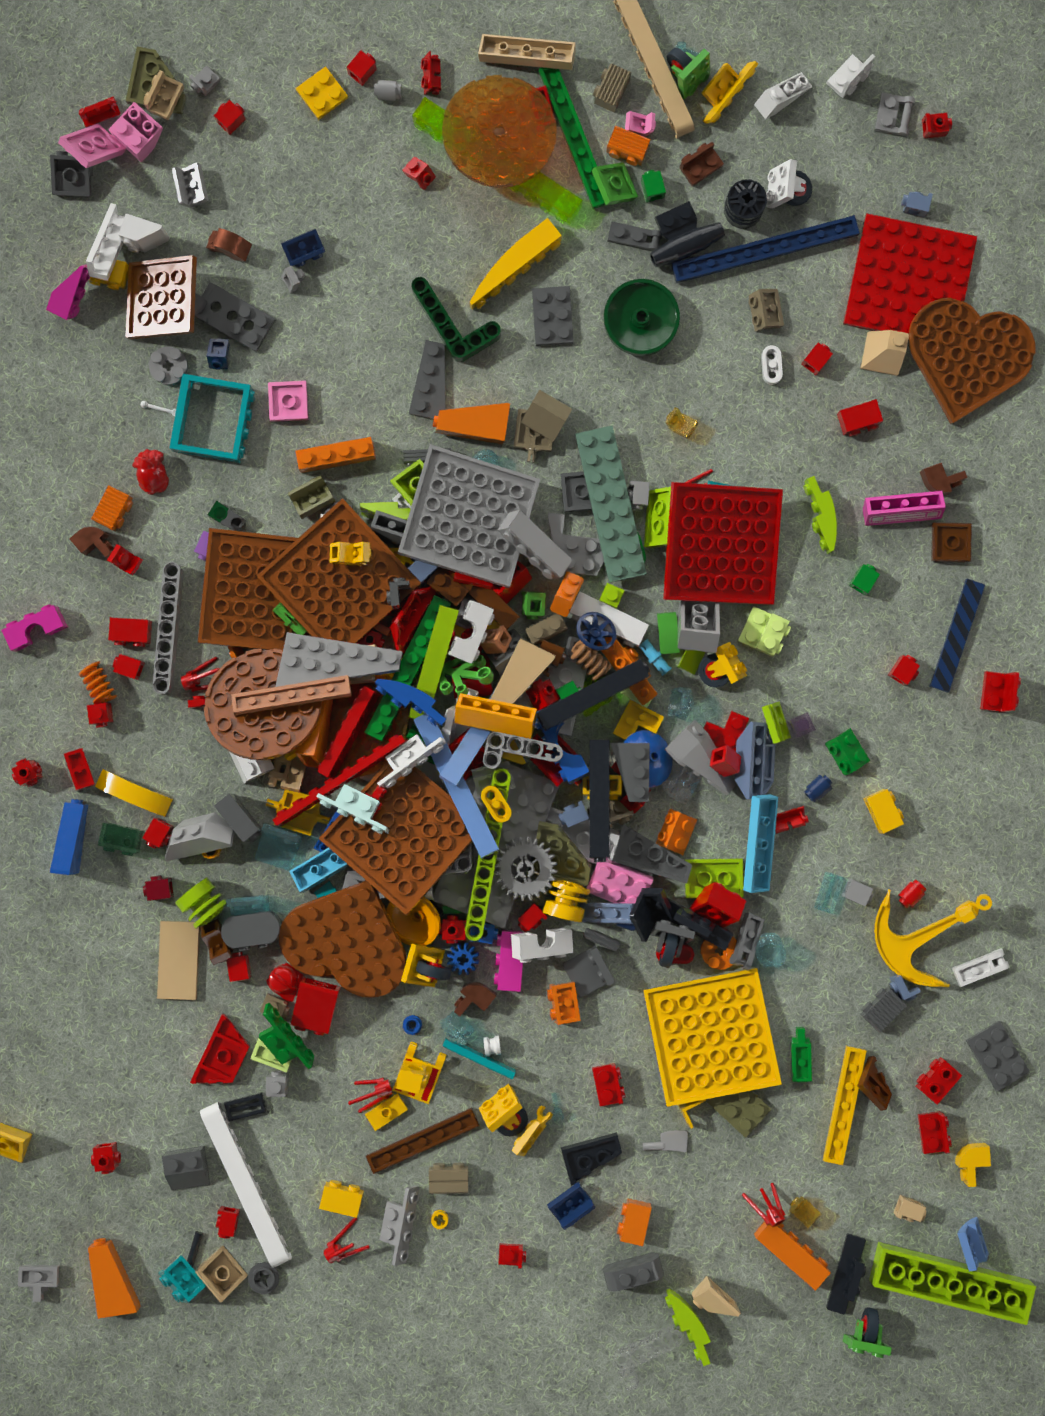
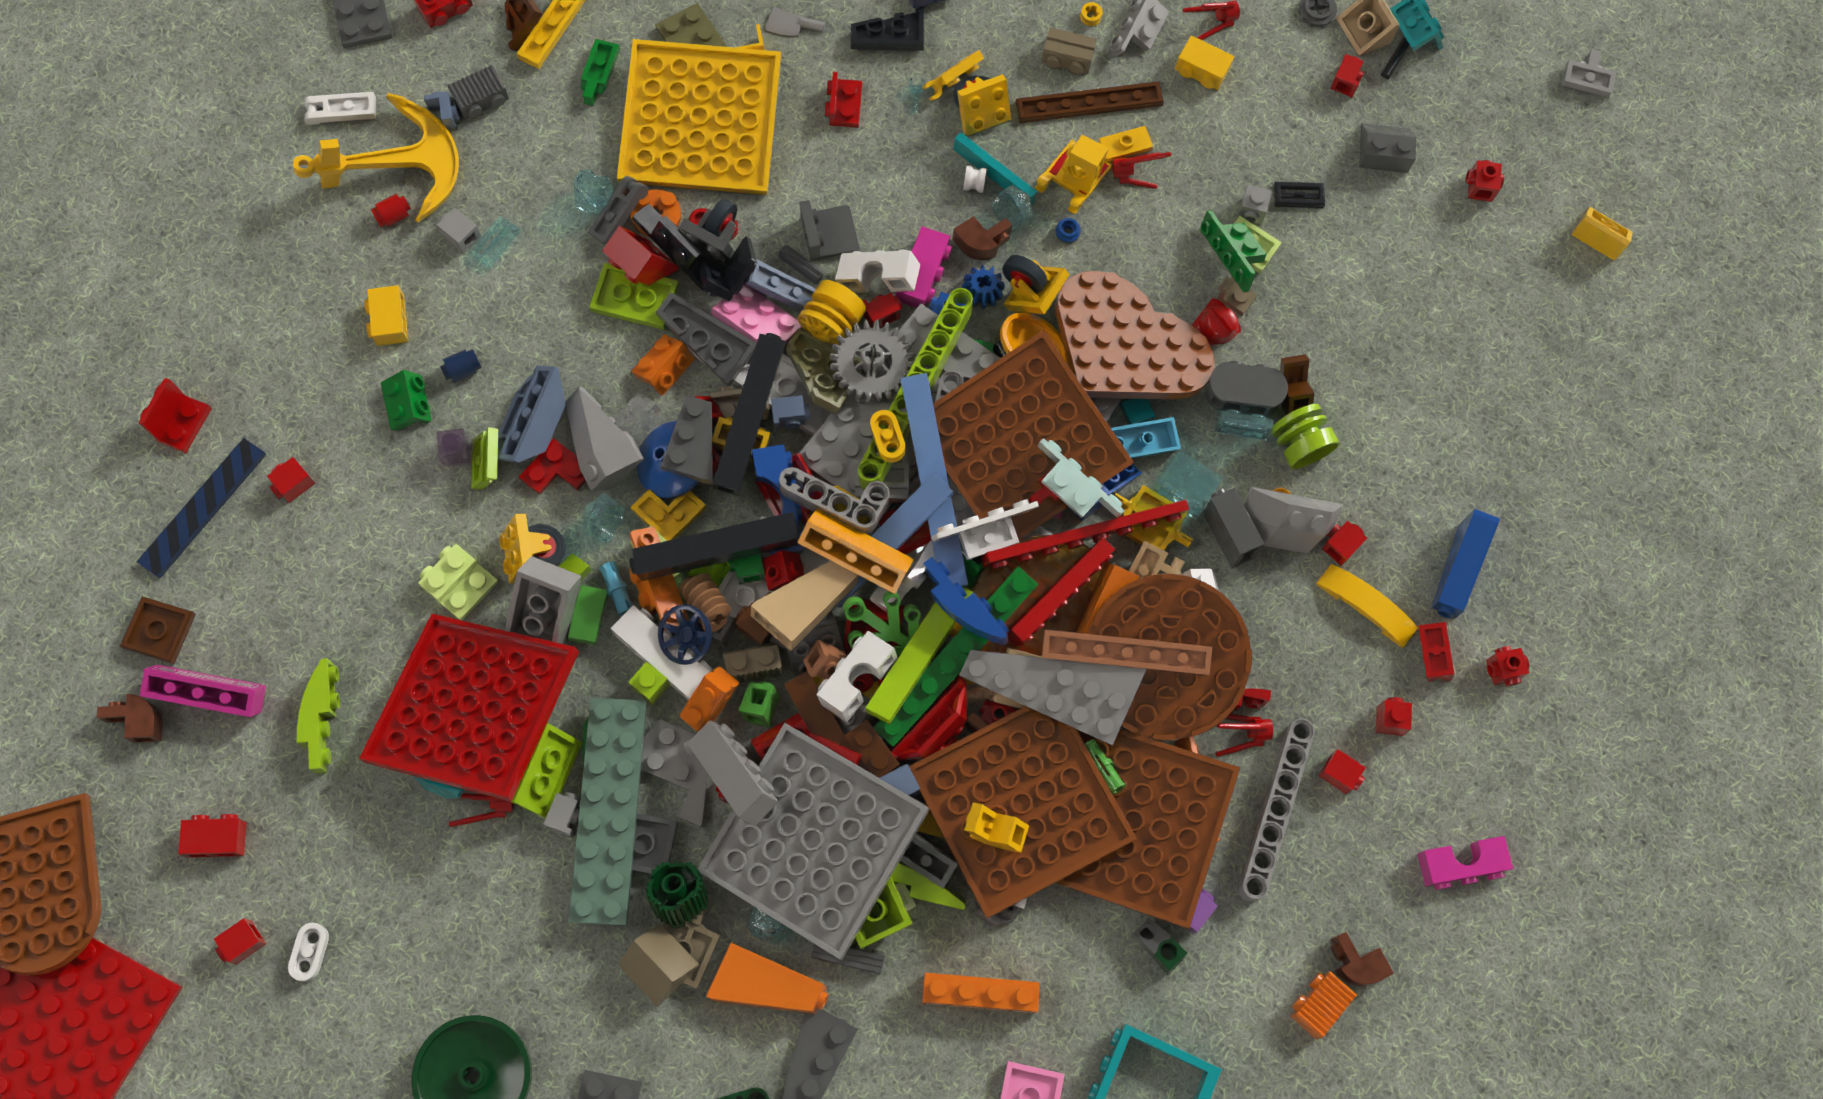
camera: 170 degrees left, 15 degrees down
(96, 683) = (1390, 759): orange piece -> none
(110, 1281) = (1502, 49): orange slope -> none
(120, 838) = (1395, 549): clear green brick -> none
(124, 560) = (1318, 922): red bracket -> none
(130, 631) = (1330, 820): red brick -> none
(151, 471) = (1255, 1046): red hair -> none
(158, 888) = (1357, 473): dark red brick -> none
(178, 960) = (1349, 382): tan tile -> none
(222, 1055) = (1315, 258): red wing -> none
(238, 967) = (1271, 348): red brick -> none
(245, 1185) = (1319, 110): white beam -> none
(311, 497) = (1030, 940): olive bracket -> none
(315, 1006) = (1184, 281): red slope -> none
(393, 595) = (942, 763): dark grey bracket -> none
(458, 924) = (985, 321): red brick -> none
(538, 461) = (676, 893): none -> dark green brick
(564, 1003) = (871, 201): orange bracket -> none
(681, 423) = (469, 900): clear yellow bracket -> none
(725, 761) = (568, 424): red brick -> none
(760, 843) = (559, 315): medium azure piece -> none
(766, 309) = (285, 1038): dark tan bracket -> none
(795, 817) = (503, 338): red hinge -> none
(864, 579) = (295, 612): green brick -> none
(884, 351) = (138, 925): tan slope -> none

